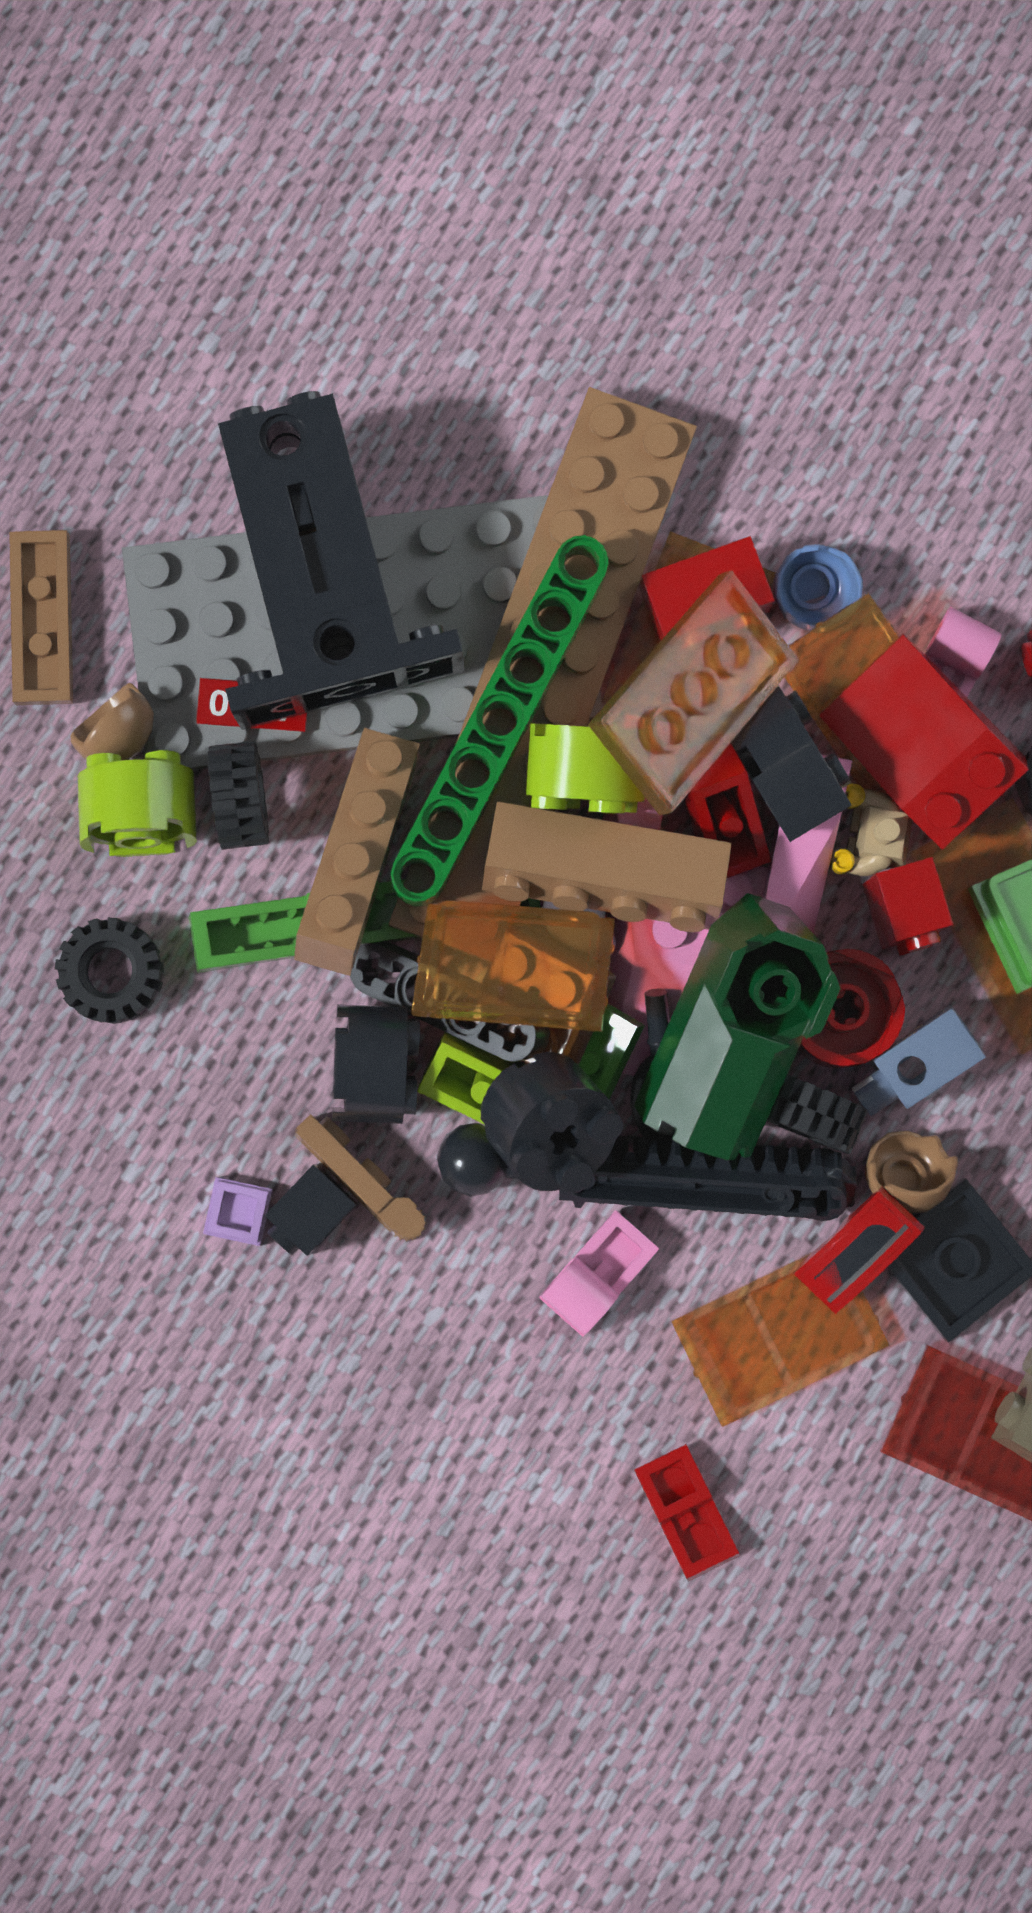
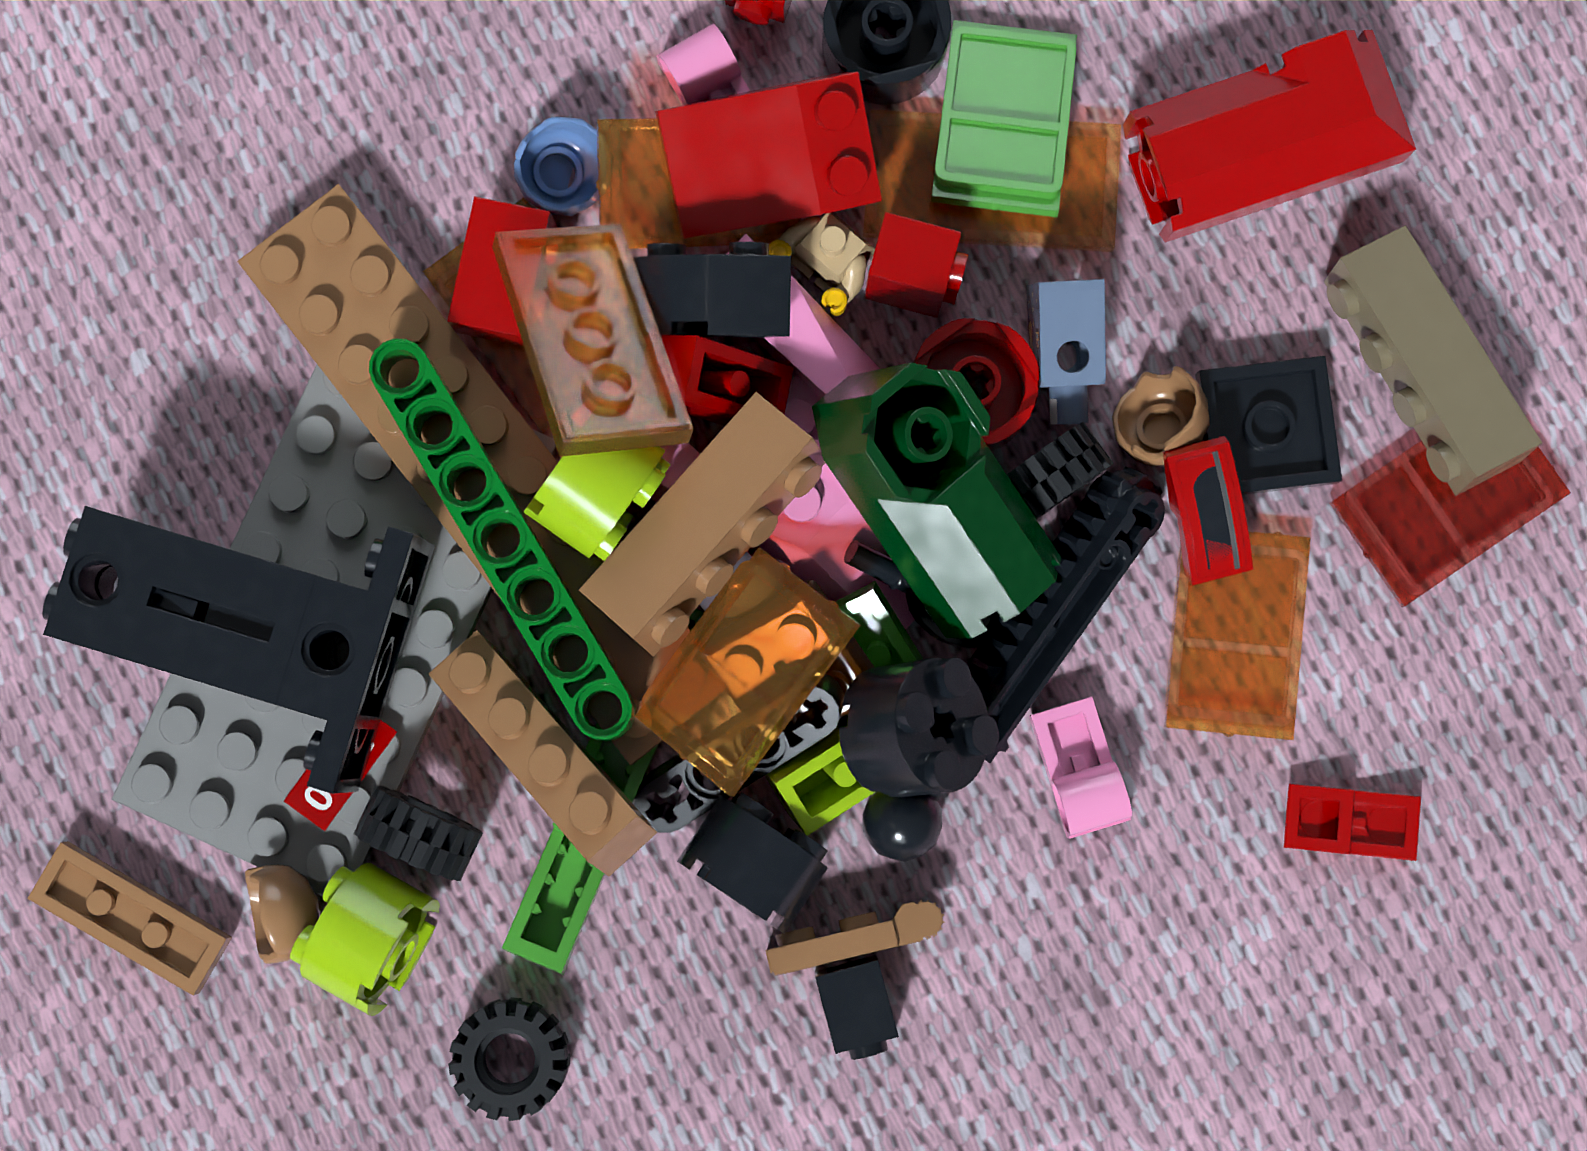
camera: 55 degrees left, 0 degrees up
(238, 1211) = (813, 1074): lavender tile -> none

